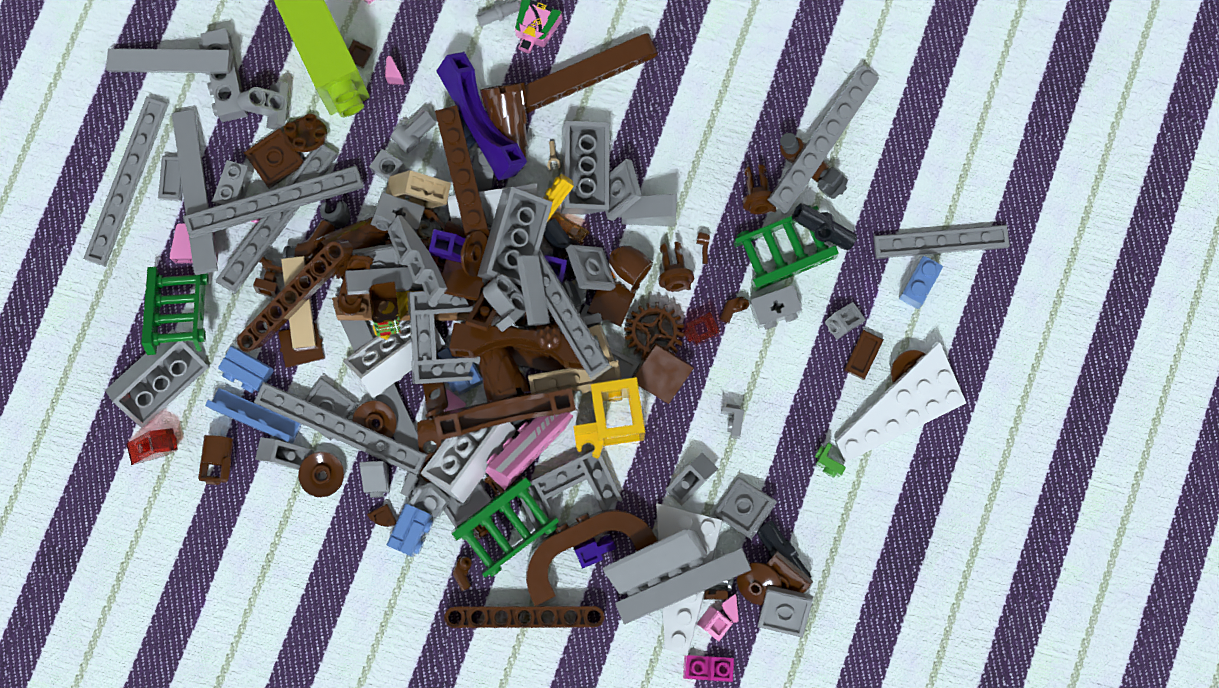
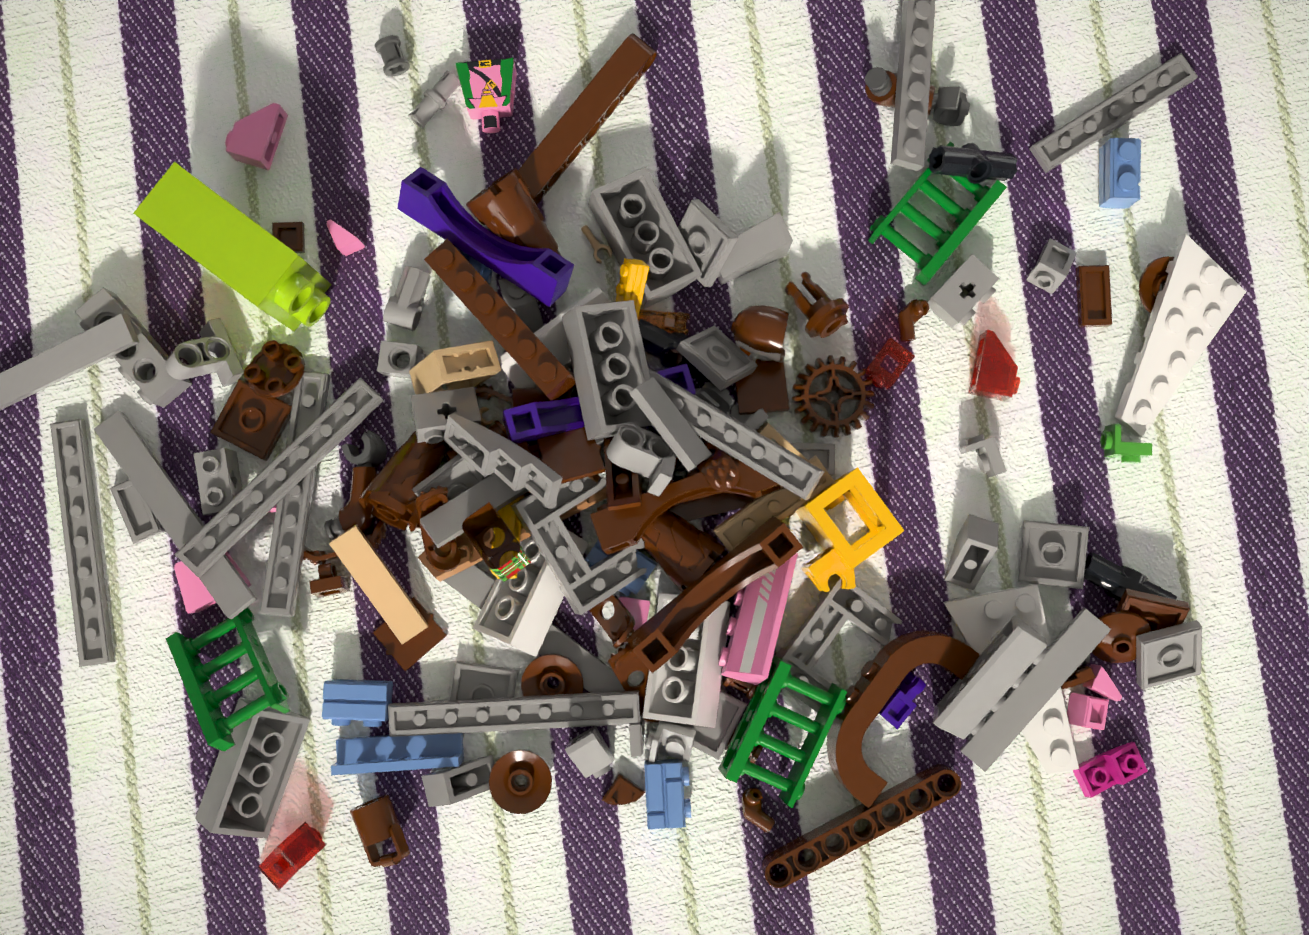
camera: 30 degrees left, 5 degrees up
(302, 290) = (373, 569): reddish brown beam -> none
(473, 252) = (568, 414): reddish brown dish -> none
(662, 373) = (871, 442): reddish brown tile -> none
(703, 239) = (833, 253): reddish brown hand -> none
(756, 200) = (873, 170): reddish brown piece -> none
(768, 369) = (993, 370): none -> clear red slope

